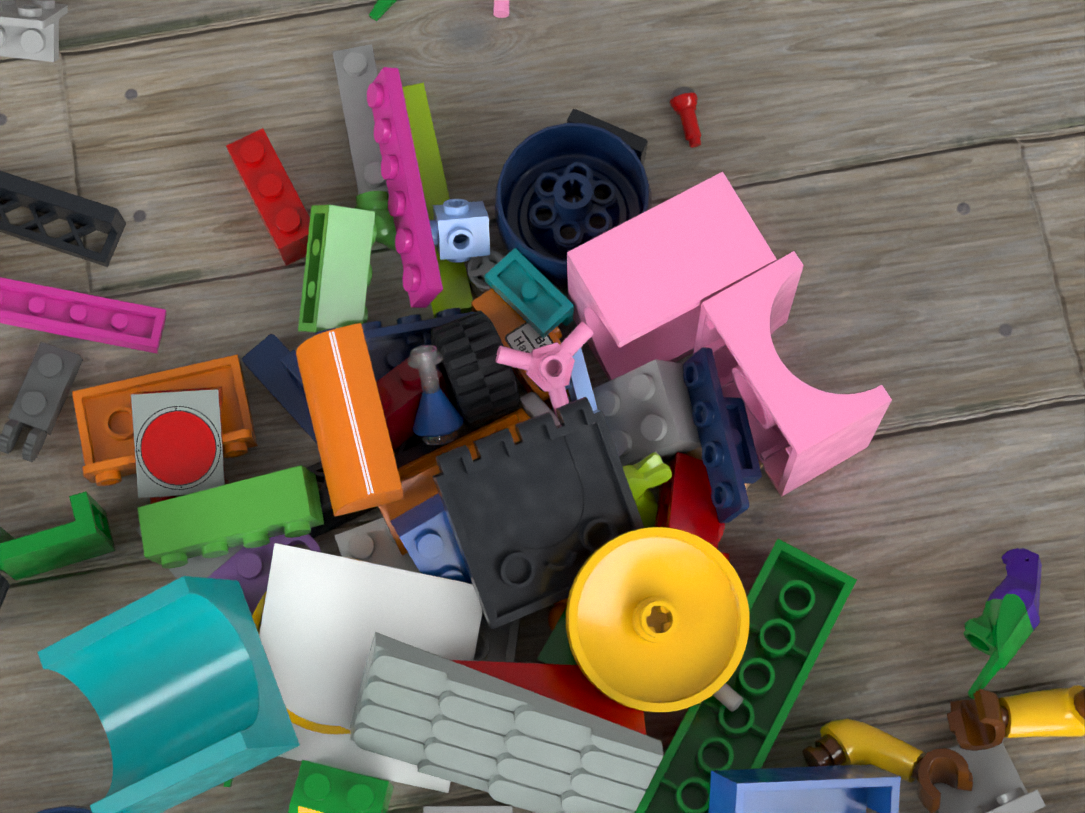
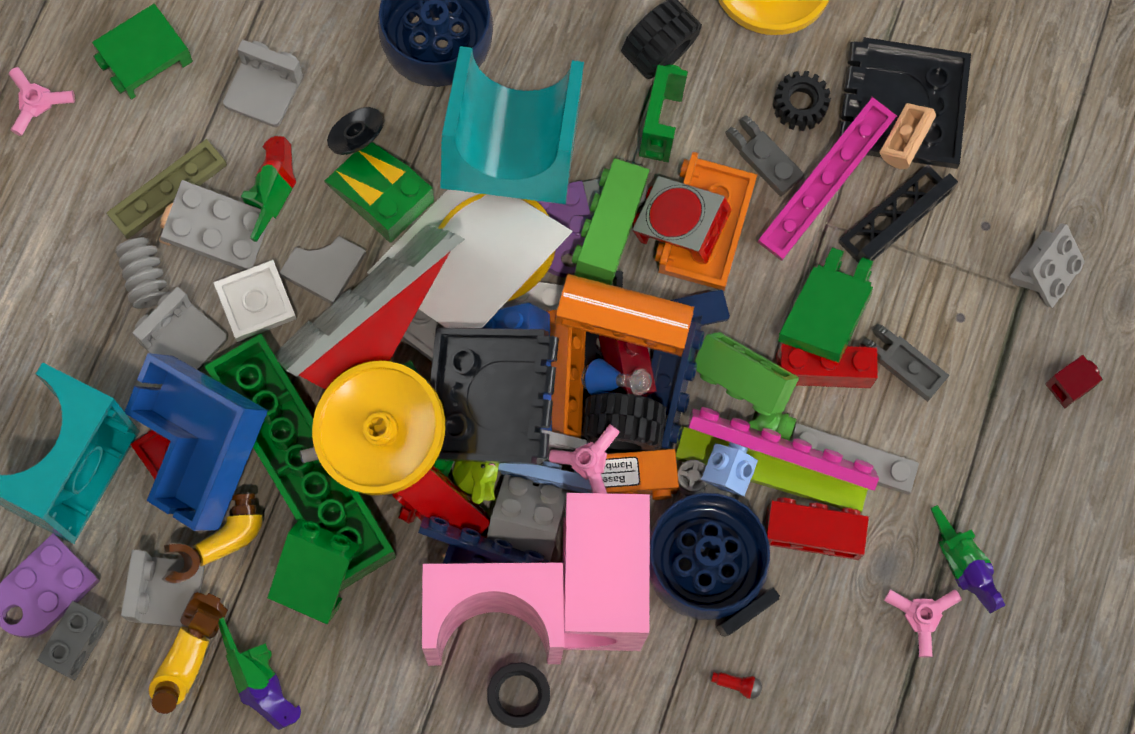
camera: 110 degrees right, 0 degrees up
(204, 222) = (828, 308): none -> green tile
(221, 118) = (907, 363): none -> dark grey hinge
(470, 116) = (816, 529): none -> red brick
(529, 293) = (663, 485): teal panel -> none
(848, 297) = (500, 677): none -> black tyre
(854, 616) = (312, 570): none -> green panel

